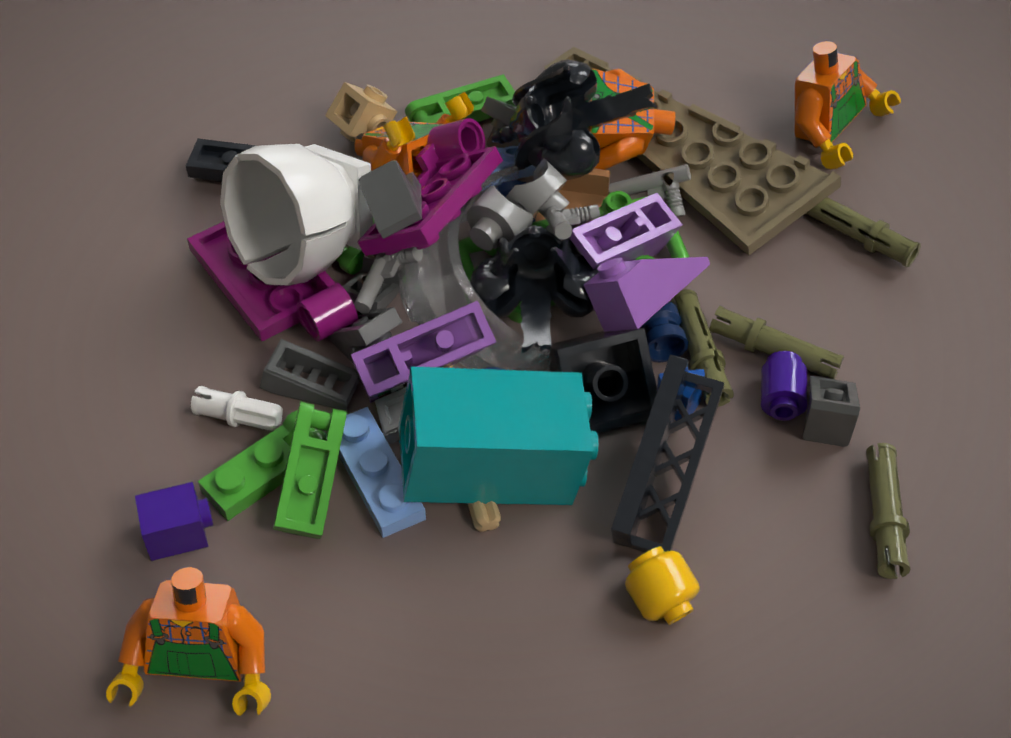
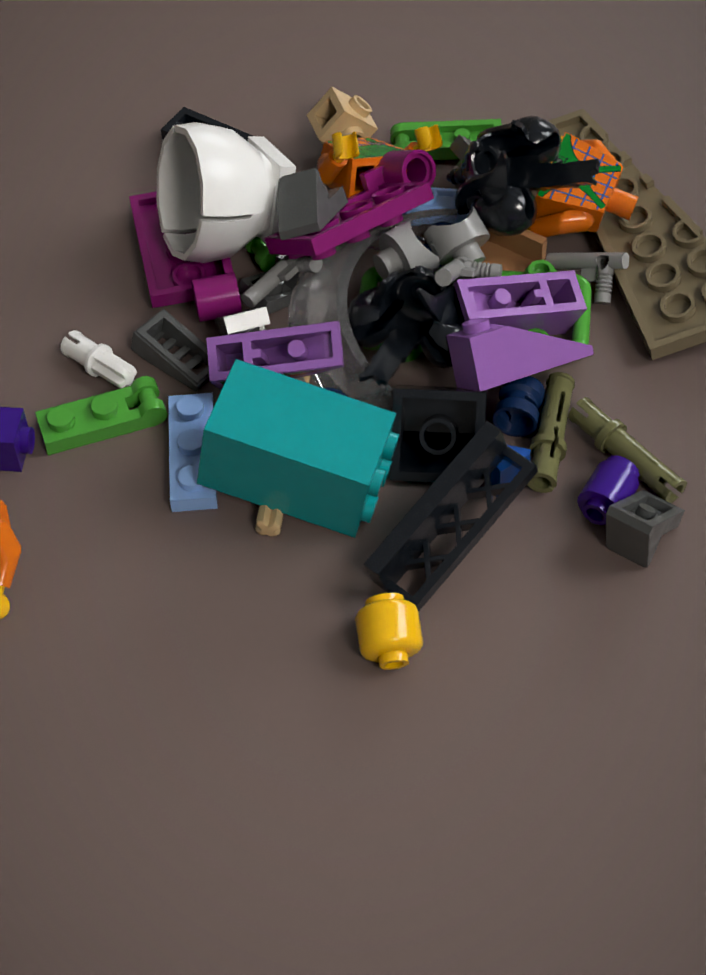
camera: 25 degrees right, 0 degrees up
(309, 472) = (129, 431): bright green plate -> none
(888, 524) = (638, 649): olive pin -> none

